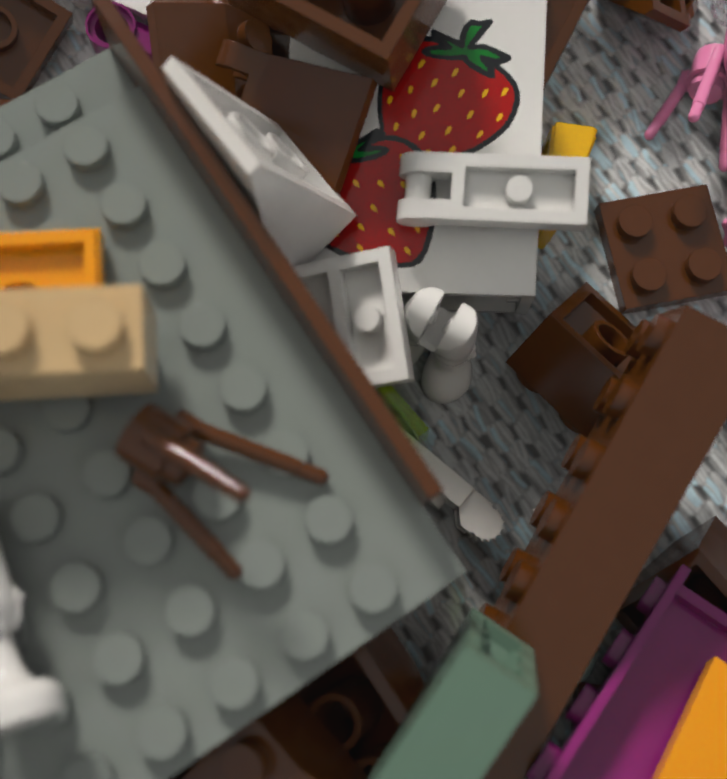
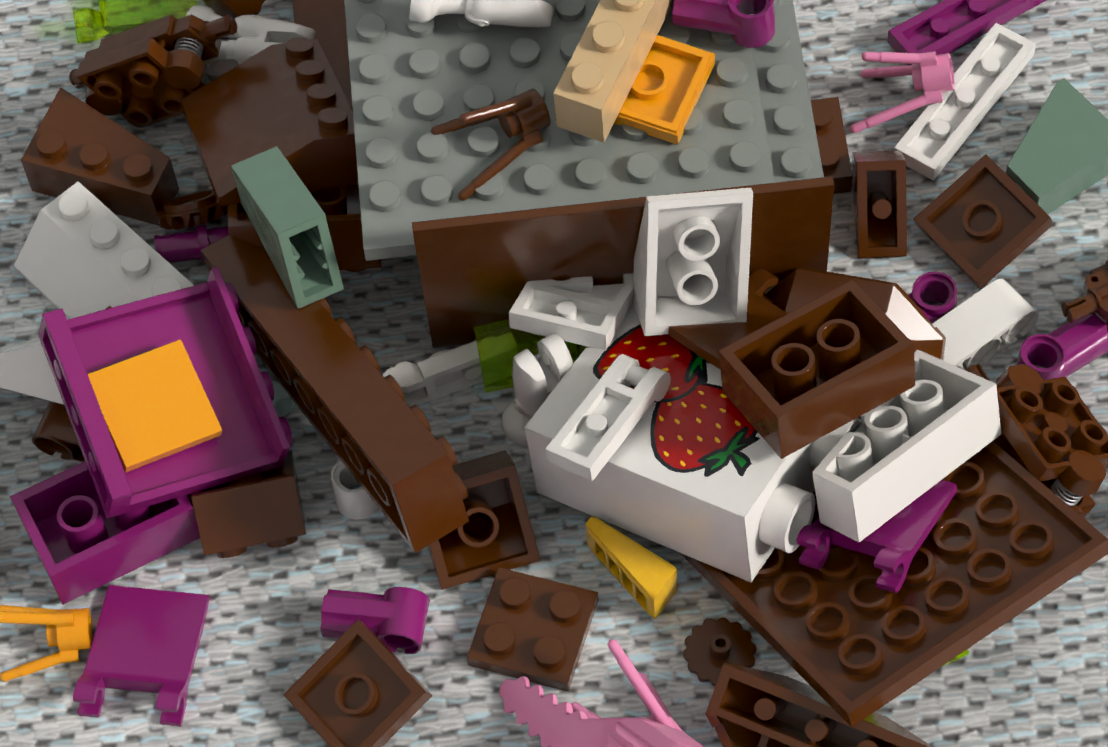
camera: 125 degrees right, 20 degrees down
(586, 80) = (714, 645): none -> reddish brown piece

